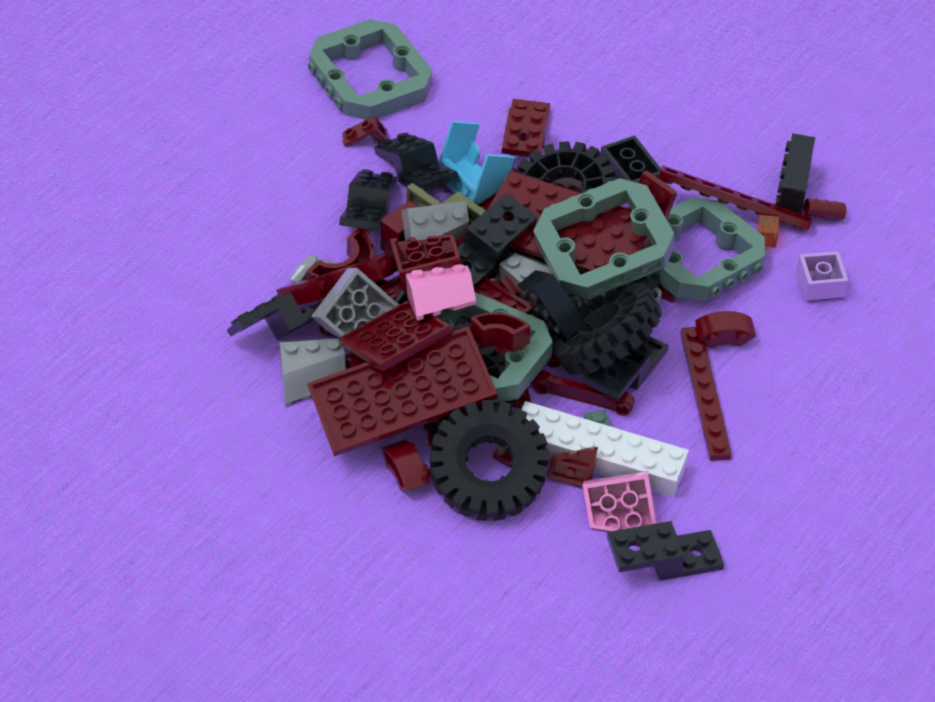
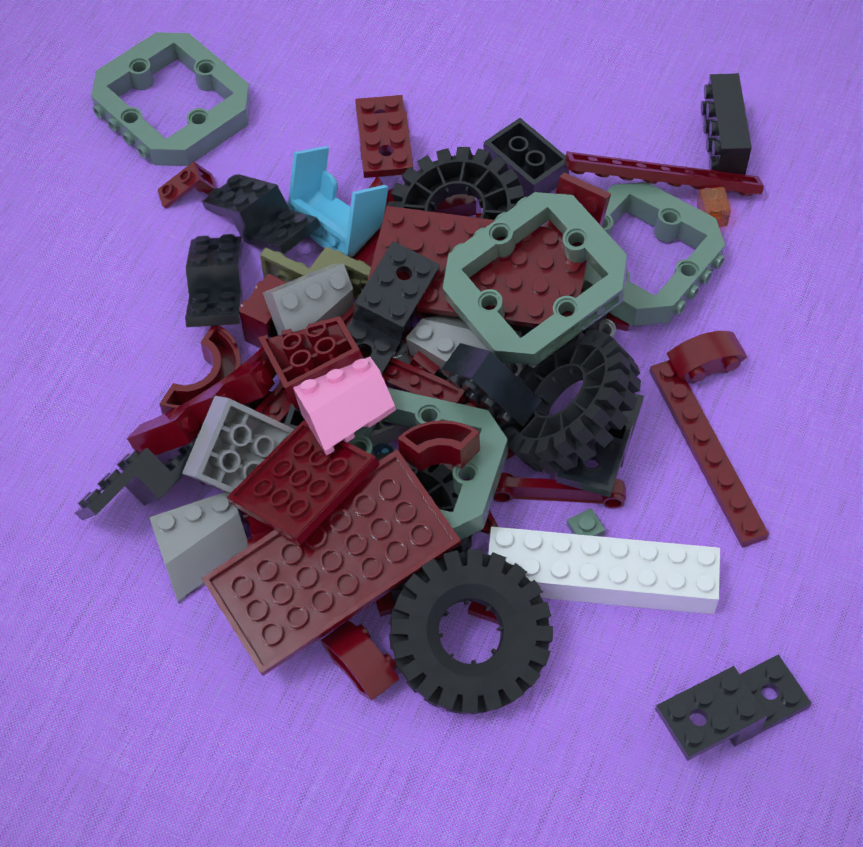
camera: 10 degrees left, 10 degrees up
(300, 272) = (156, 392): light grey arm -> none
(573, 466) = (580, 606): dark red wing -> none
(620, 501) = (655, 646): bright pink wedge -> none
(822, 275) = (800, 254): lavender brick -> none
(824, 209) = (773, 162): dark red axle -> none

